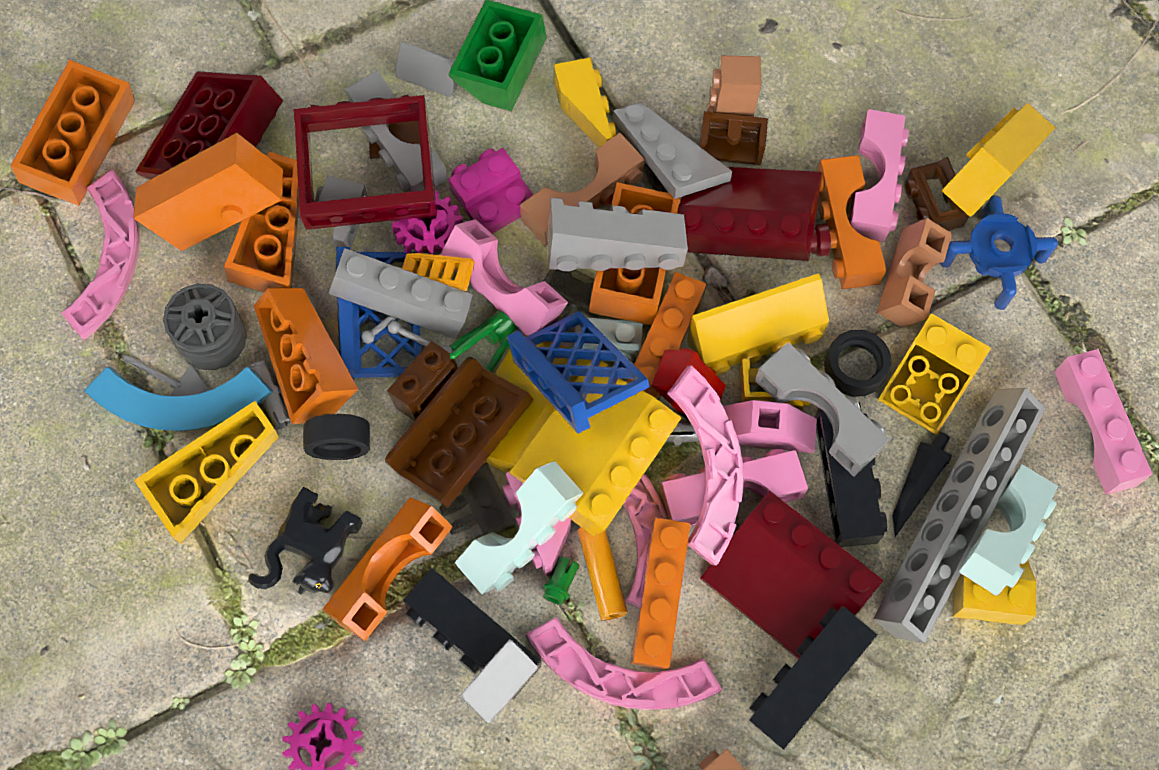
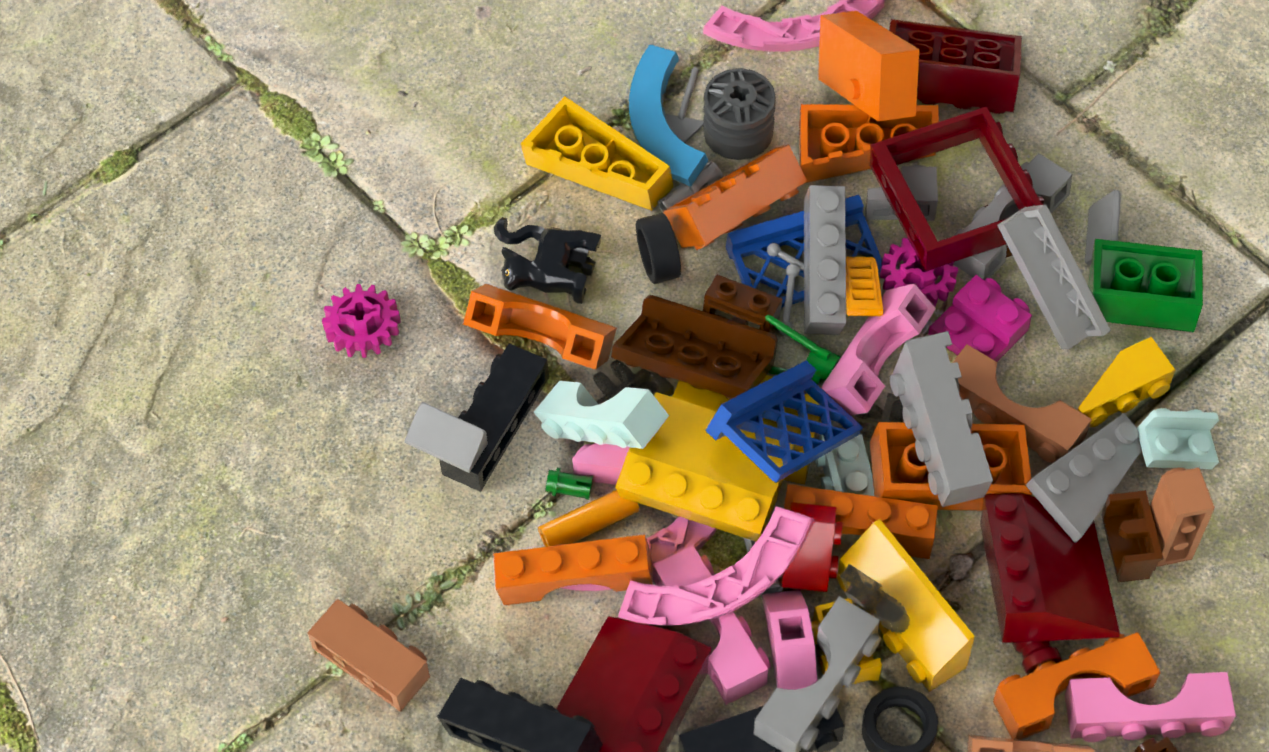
camera: 80 degrees right, 10 degrees down
(478, 117) = (1053, 277): none -> light grey fence
(617, 684) = (475, 563): bright pink tile -> none
(650, 81) = (1178, 439): none -> light aqua bracket
(770, 342) = (871, 598): none -> clear smoke hinge

